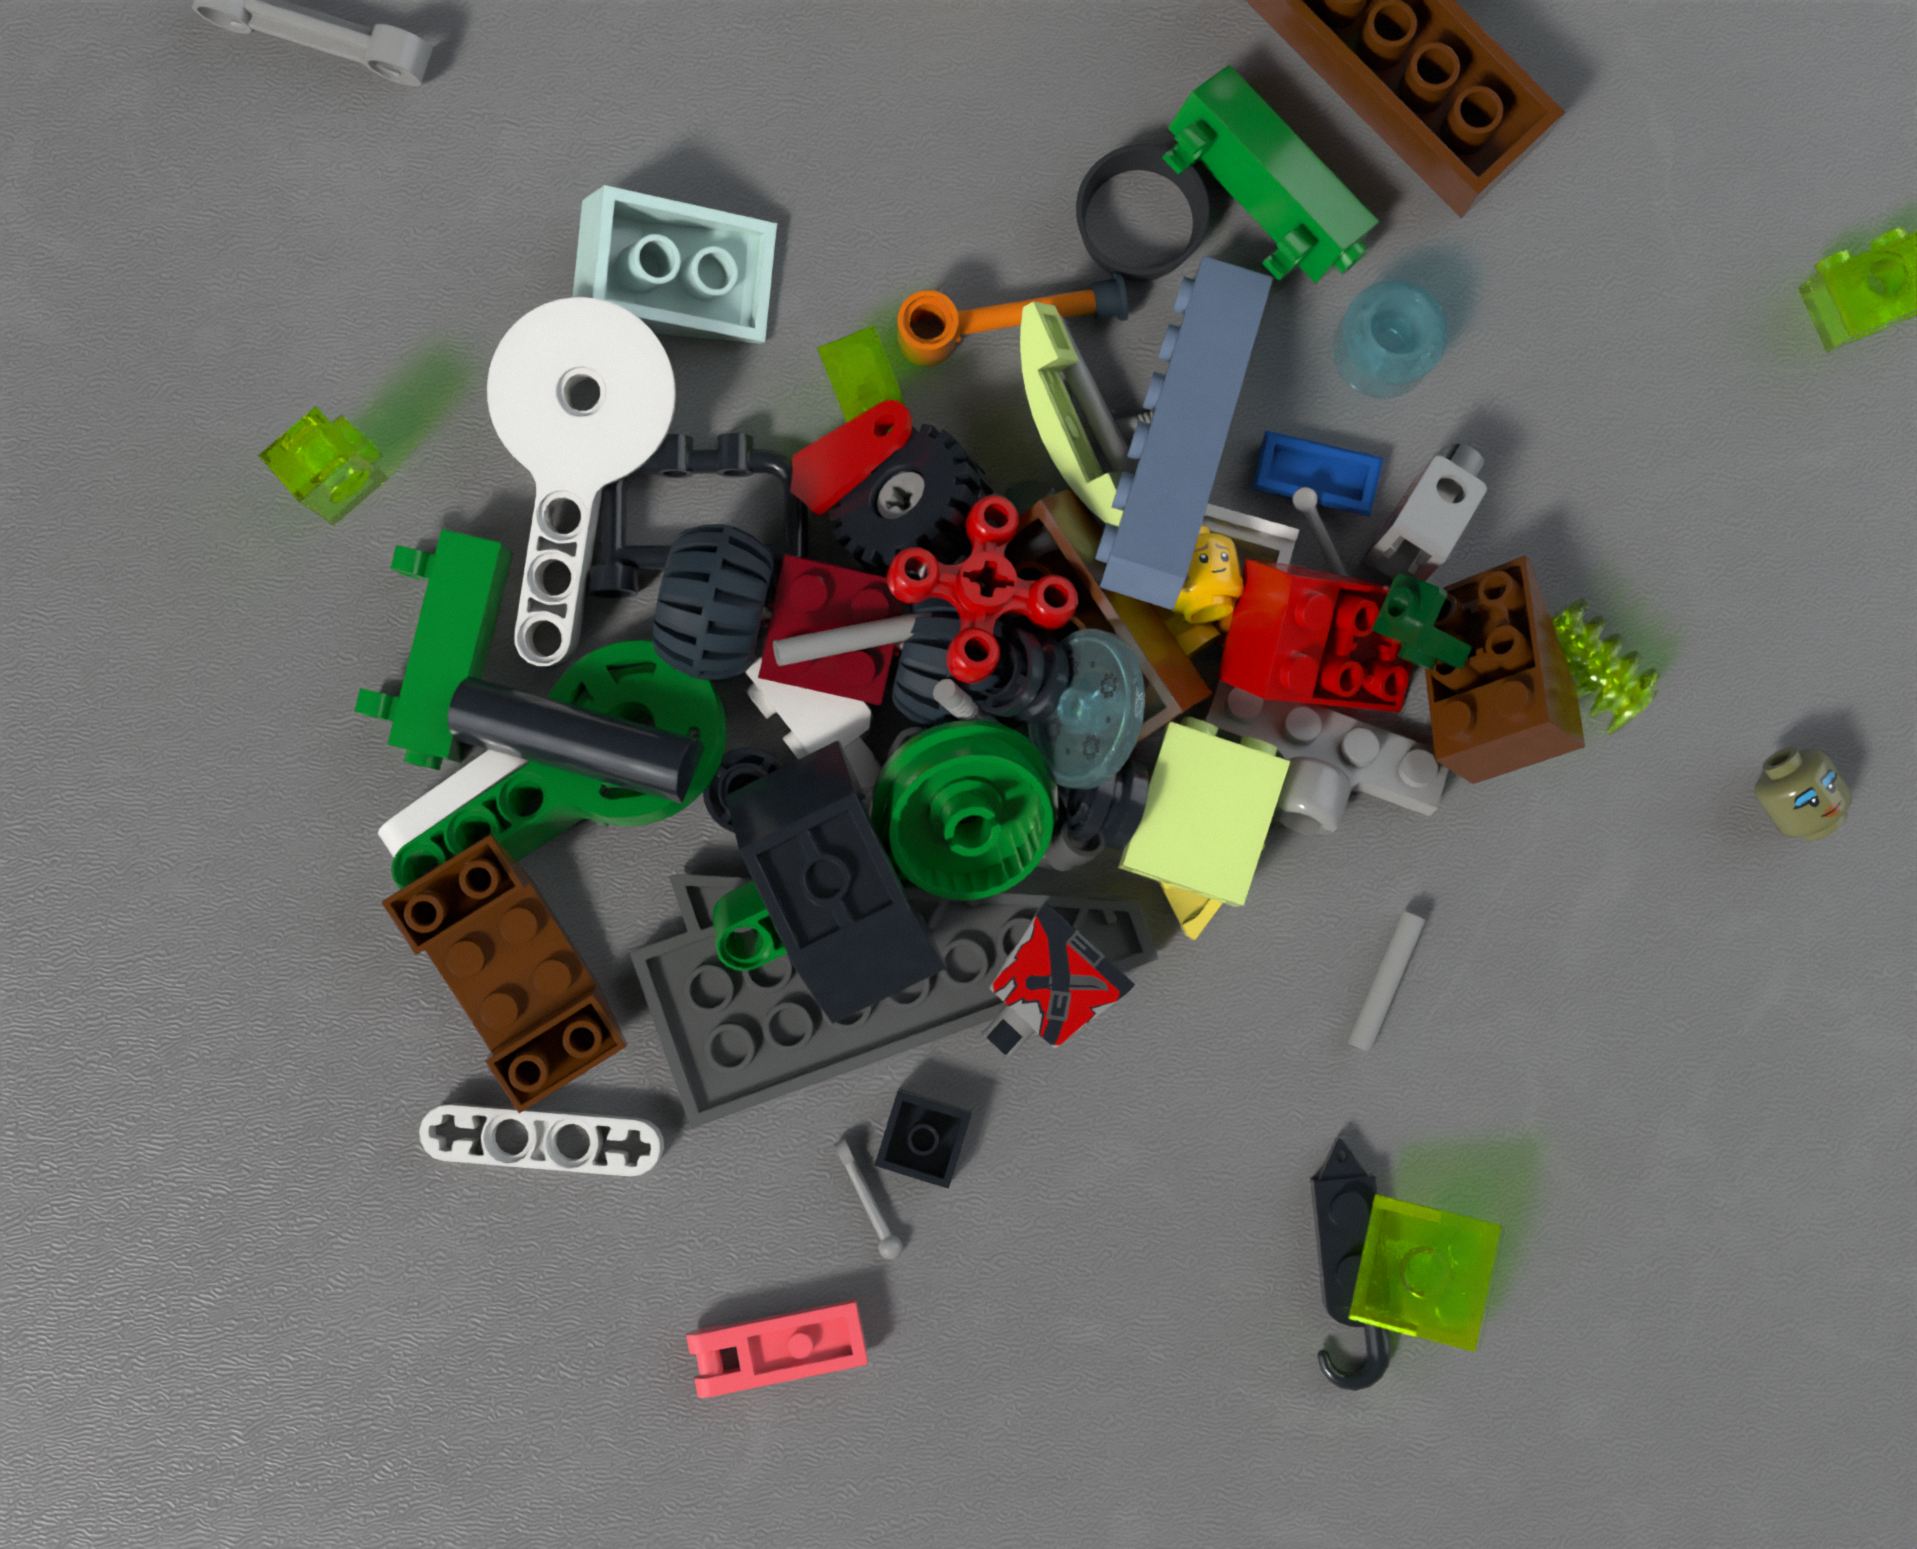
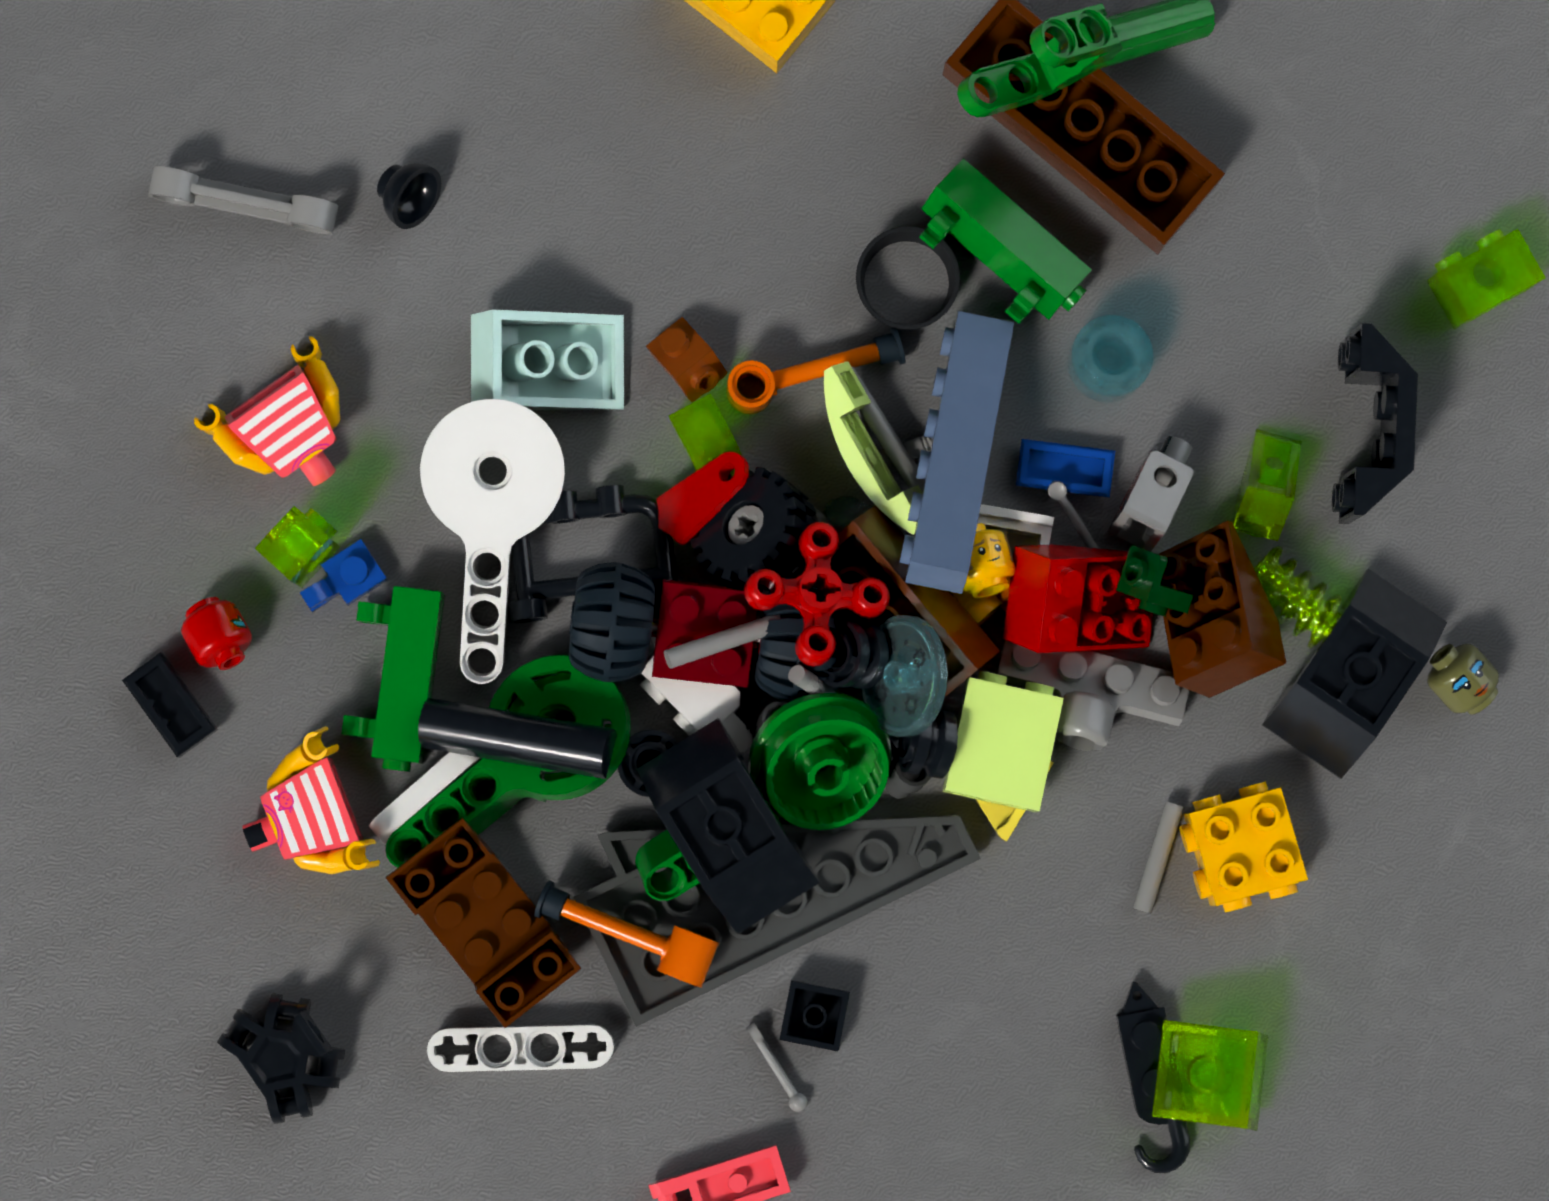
camera: 10 degrees left, 0 degrees up
(145, 653) = (170, 705): none -> black plate
(212, 568) = (216, 633): none -> red head
(228, 1118) = (281, 1056): none -> black piece
(304, 807) = (310, 813): none -> torso
(329, 310) = (284, 422): none -> torso
(393, 513) = (349, 573): none -> blue plate
(524, 41) = (409, 193): none -> black piece
(760, 1043) = (683, 954): none -> orange piece
(851, 285) = (687, 359): none -> dark orange bracket
(1052, 984) = (900, 886): torso -> none
(1499, 980) = (1243, 847): none -> yellow brick
(1575, 522) = (1267, 485): none -> clear neon green slope
(1667, 777) = (1356, 675): none -> black slope
(1740, 377) = (1374, 361): none -> black slope

